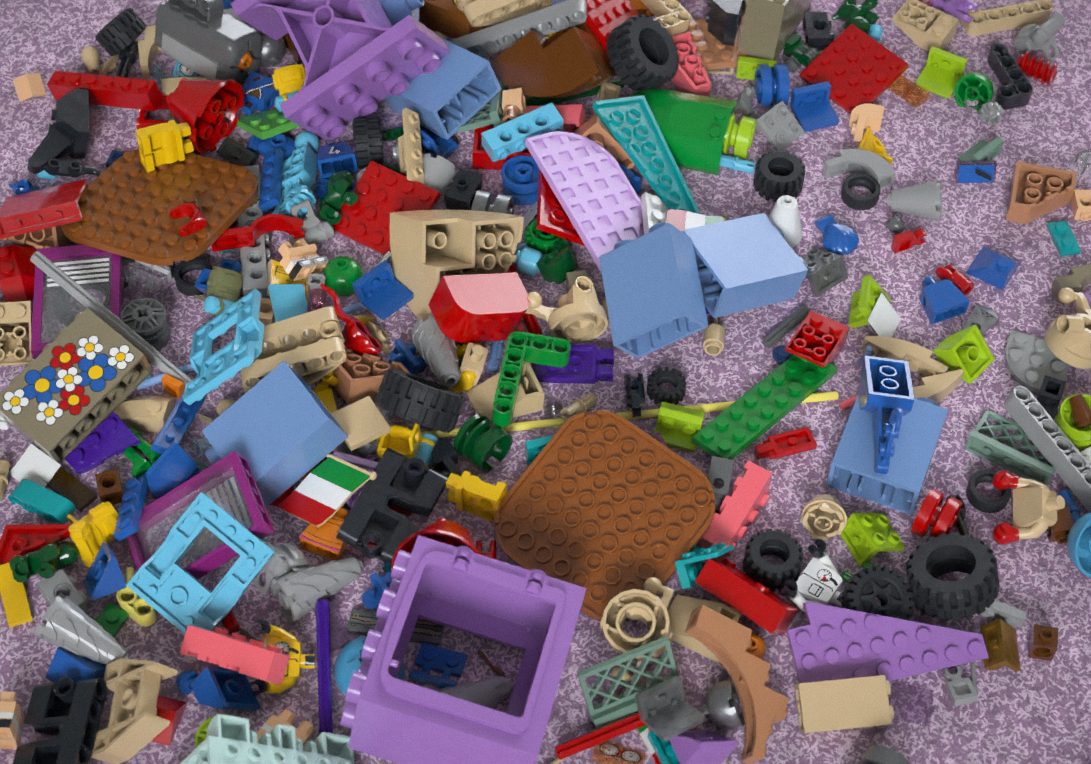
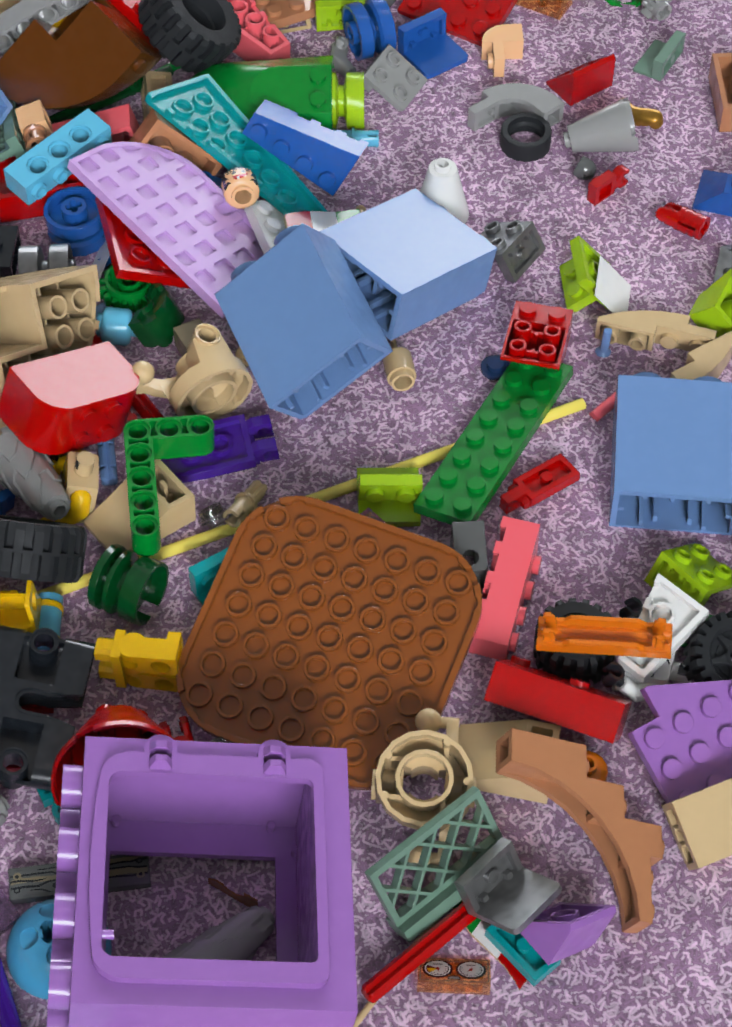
camera: 15 degrees left, 0 degrees up
(372, 597) = (42, 833): blue hips -> none
(439, 660) = (158, 907): blue plate -> none
(445, 458) = (80, 619): black brick -> none
(635, 394) = (316, 467): black hinge -> none
(641, 183) = (240, 187): none -> light nougat head
(666, 376) = (355, 433): black tyre -> none
(692, 563) = (472, 680): teal bracket -> none
(697, 162) = (305, 145): none -> blue wedge
(723, 706) = (576, 862): flat silver cylinder -> none
(779, 164) = (414, 139): black tyre -> none
(785, 326) = (486, 330): dark grey axle -> none
(790, 560) = (604, 636): none -> orange piece
(824, 517) = (624, 566): tan cone -> none
(834, 564) = (677, 608): none -> white wing
(837, 237) = (515, 199): blue animal -> none
(873, 144) = (516, 74): yellow tile -> none
(889, 390) = (658, 375): blue slope -> none
(918, 158) = (584, 80): none -> red slope
(942, 300) = (676, 249): blue torso -> none
(952, 196) = (647, 117): none -> pearl gold arm
(975, 171) = (661, 80): slope -> none

